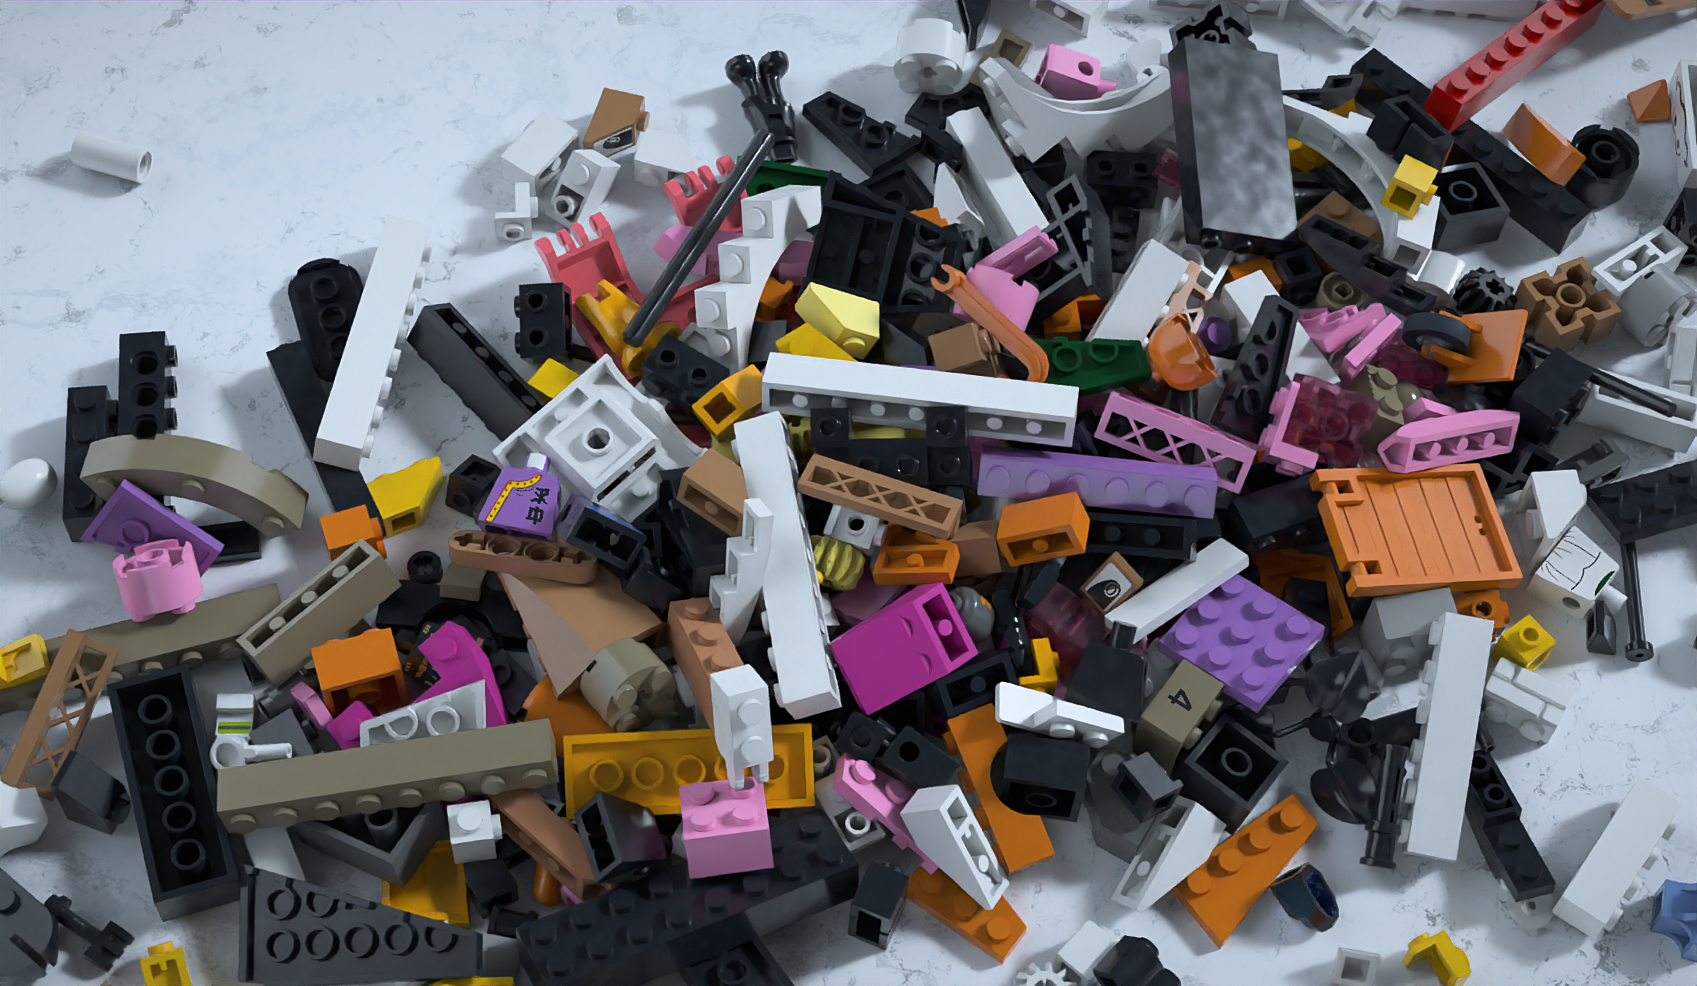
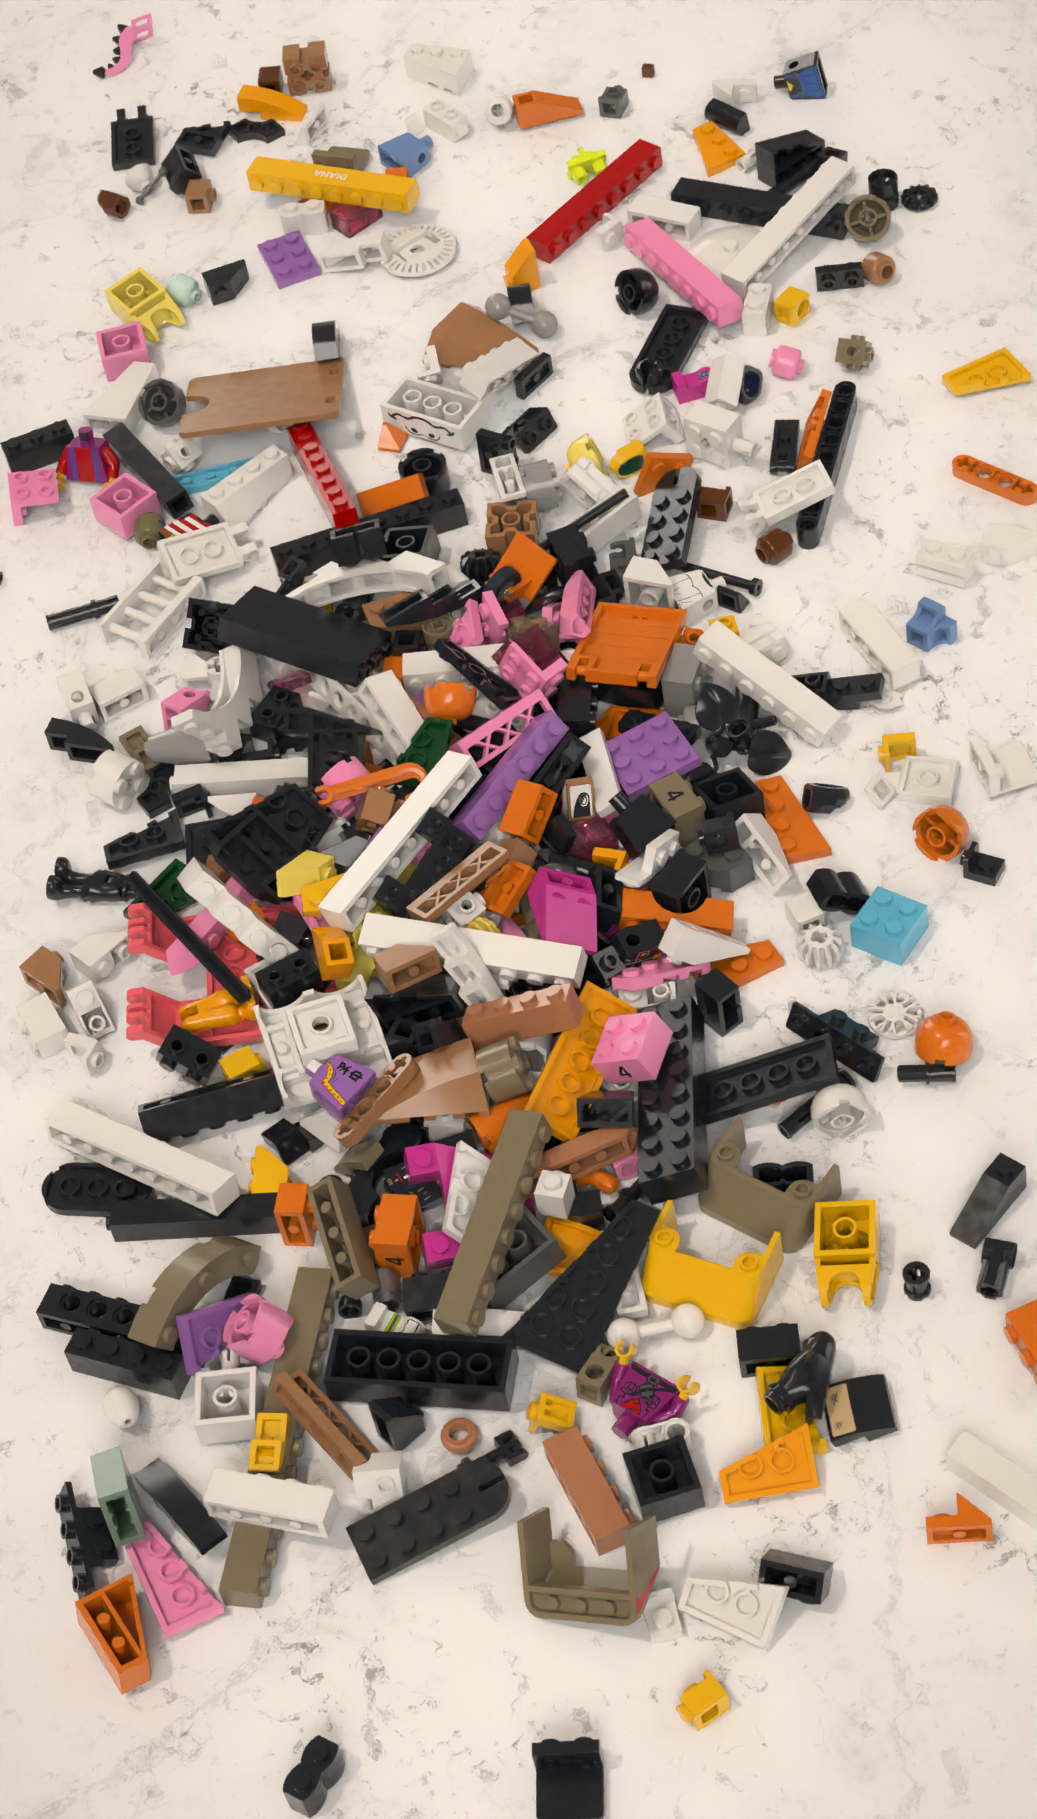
camera: 50 degrees left, 10 degrees down
(60, 592) = (227, 1402): none -> white brick
(97, 867) = (463, 1445): none -> nougat piece
(234, 751) = (419, 1319): white plate -> none
(311, 705) = (405, 1266): bright pink tile -> none
(590, 529) = (379, 1047): black torso -> none
(742, 723) = (582, 991): white hinge -> none
(1022, 253) = (319, 761): bright pink tile -> none
(1383, 824) = (802, 741): black pin -> none
(1410, 187) = (396, 555): yellow brick -> none

